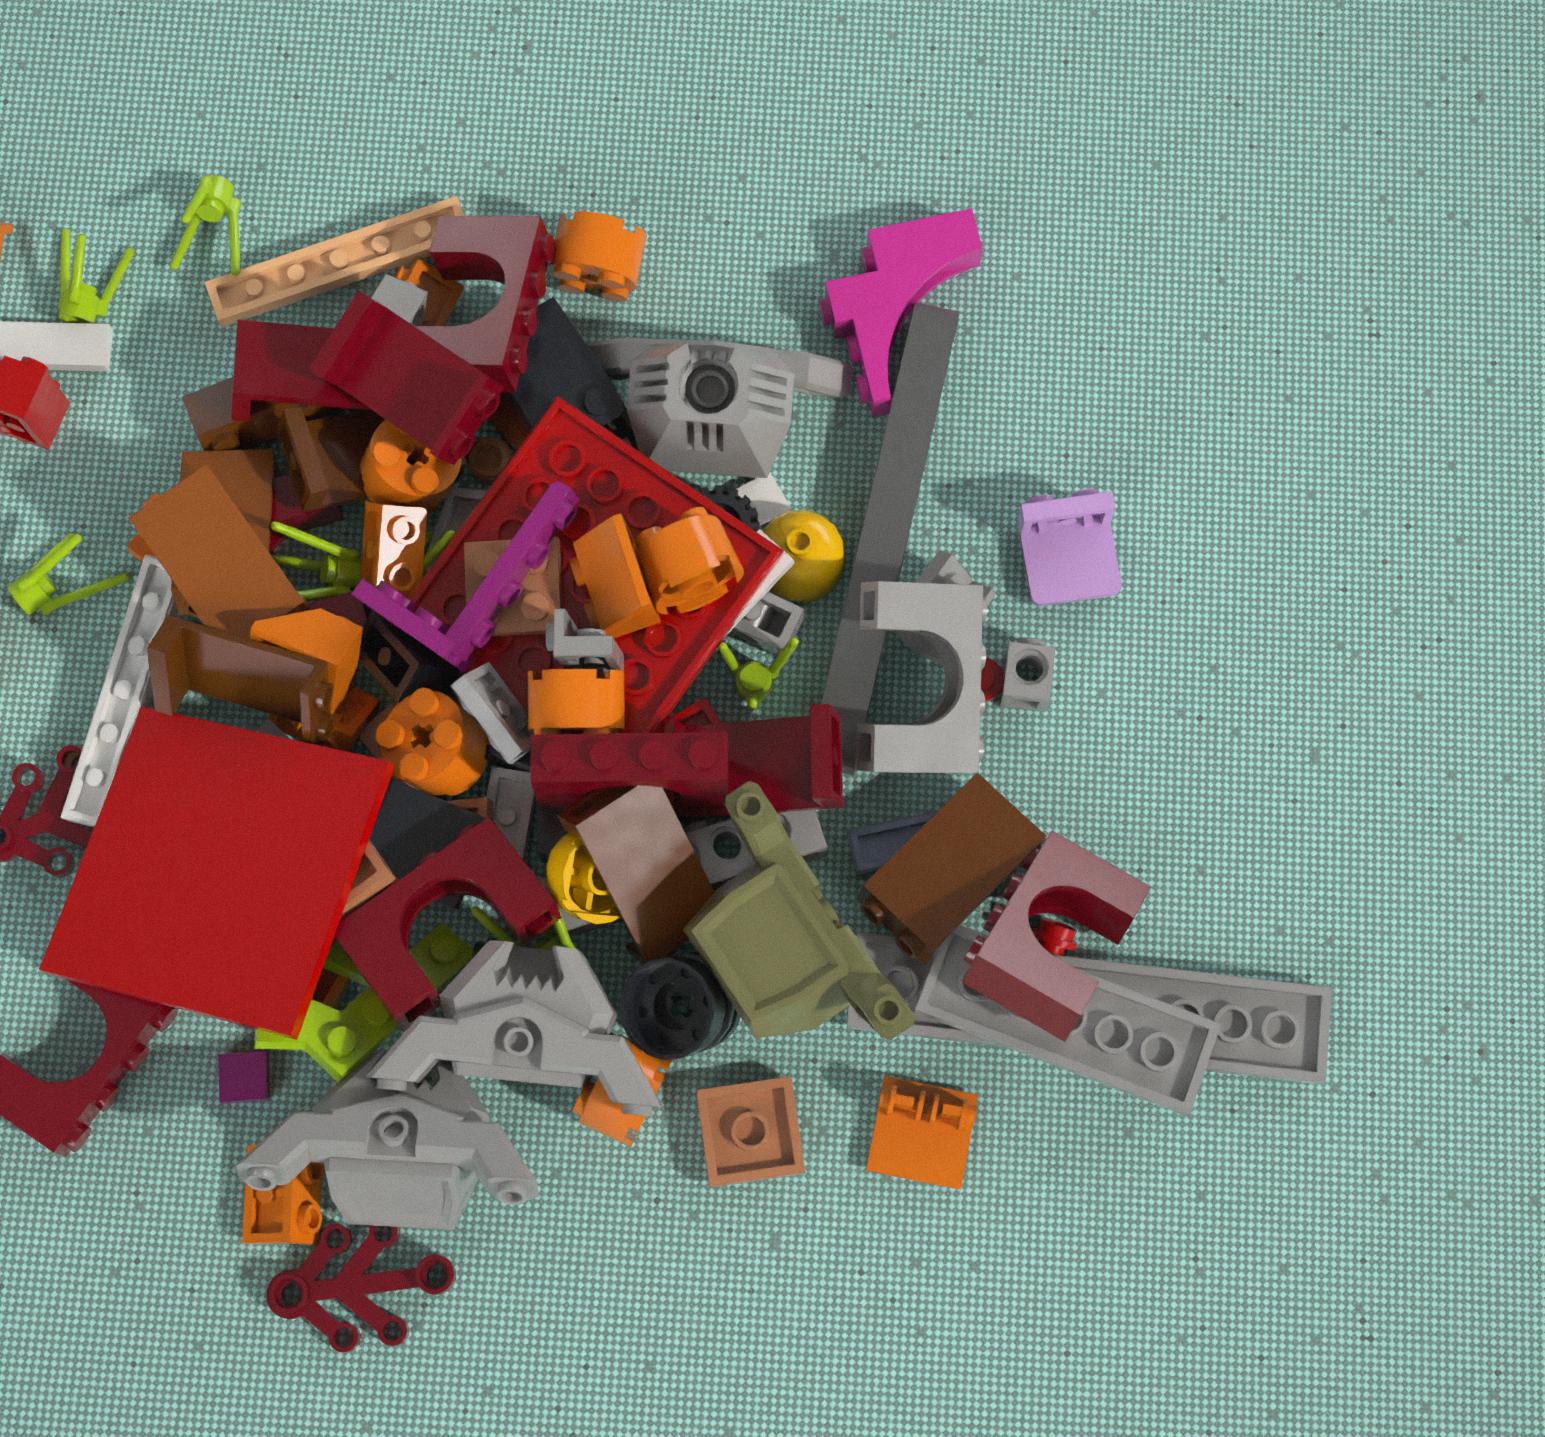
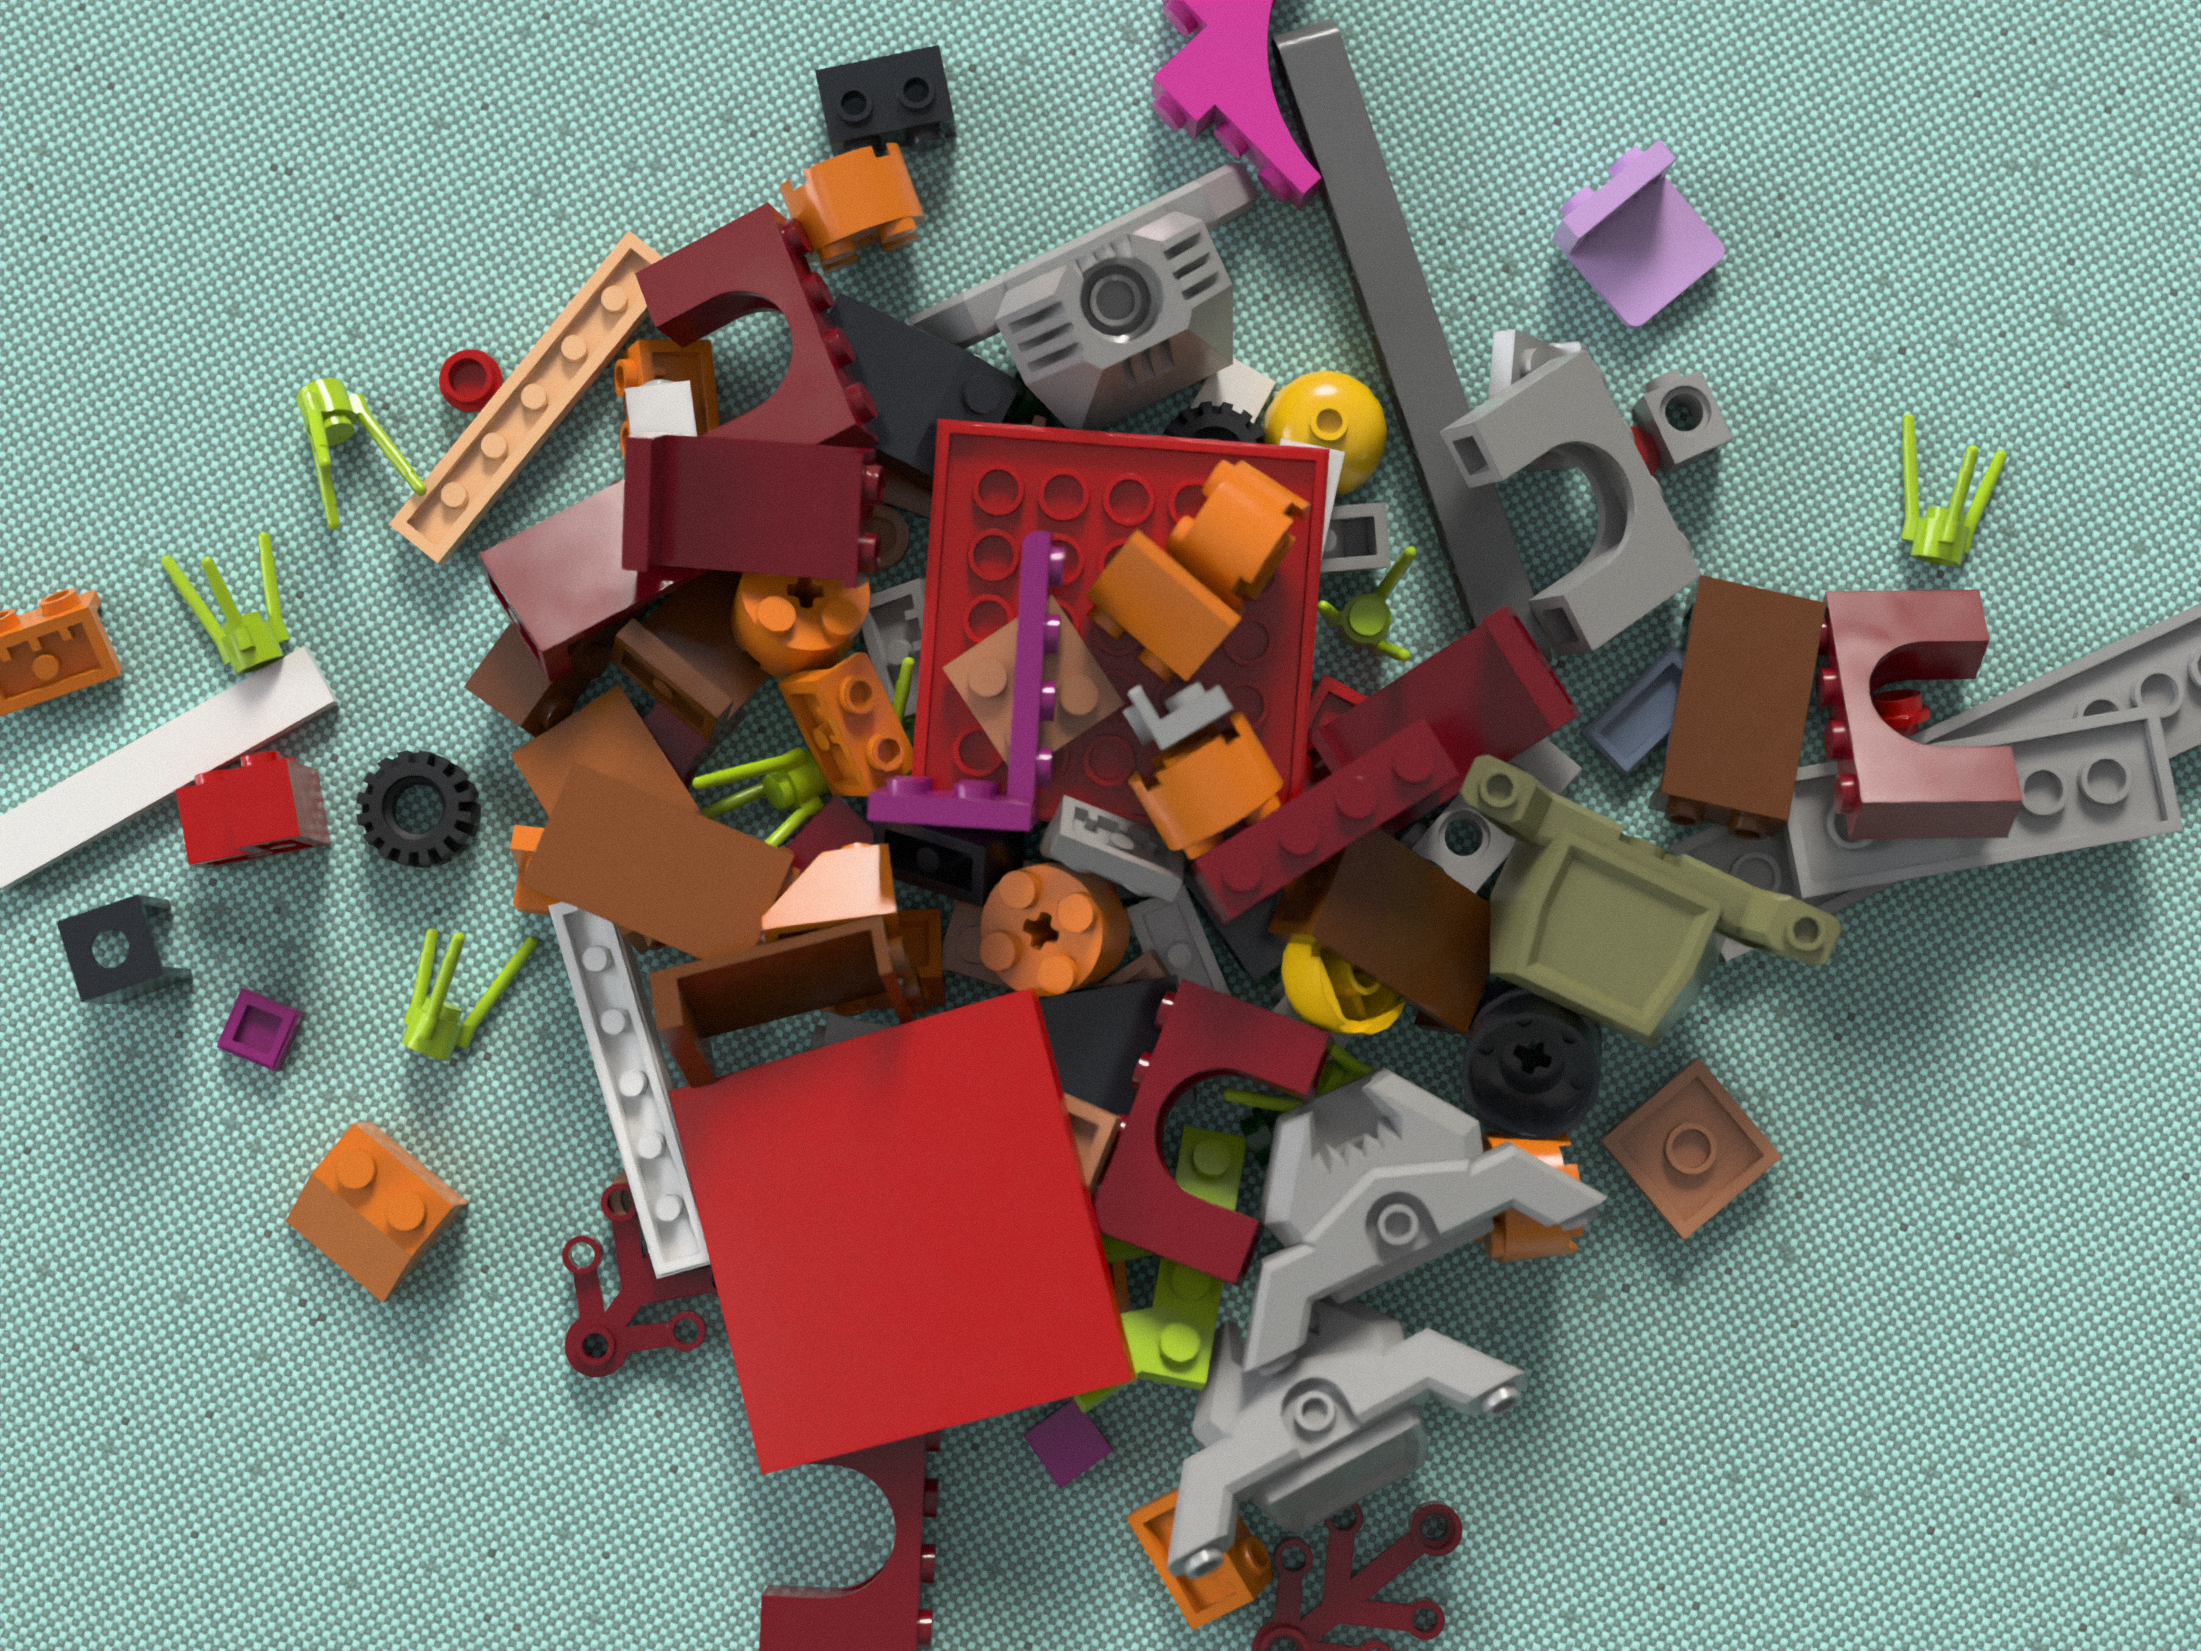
camera: 35 degrees left, 10 degrees up
(97, 436) = (380, 803): none -> black tyre
(308, 228) = (470, 380): none -> red plate
(662, 207) = (887, 101): none -> black brick
(922, 1132) = (1881, 1028): orange hinge -> none
(1152, 842) = (1944, 532): none -> lime plant

